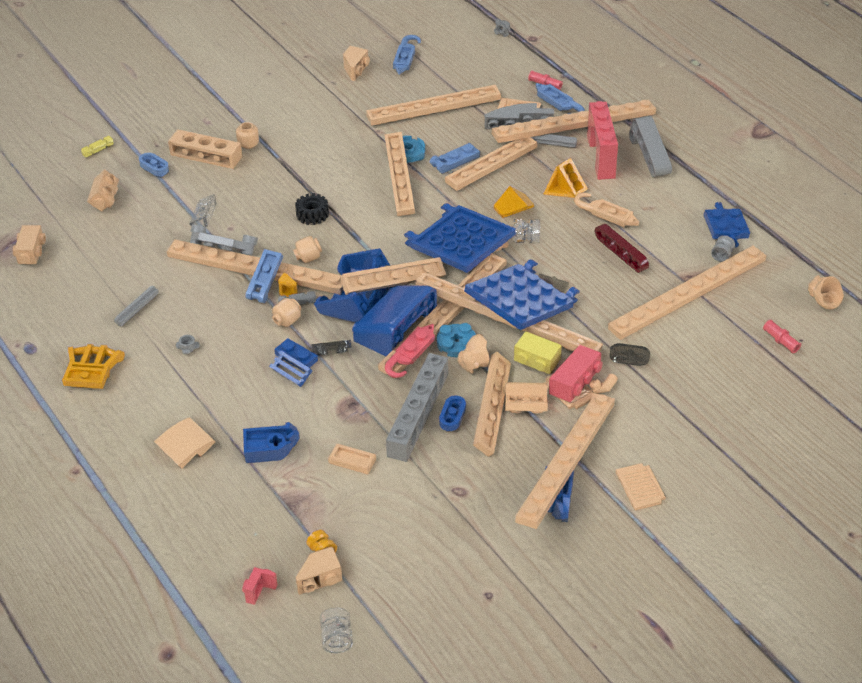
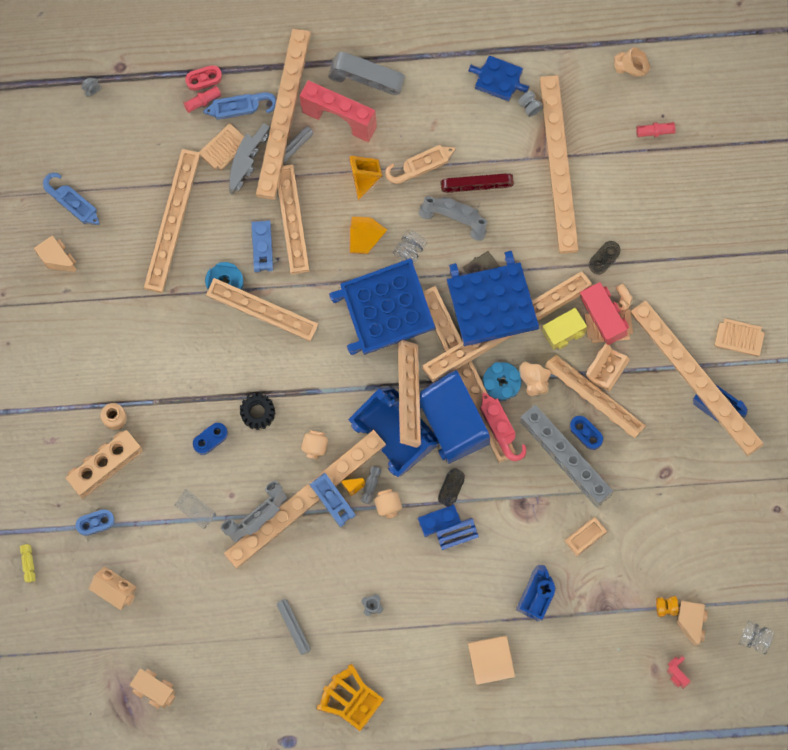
camera: 55 degrees left, 30 degrees up
(269, 196) = (210, 438): none -> blue plate
(563, 74) = (203, 77): none -> coral plate
(584, 245) = (456, 211): none -> light grey plate

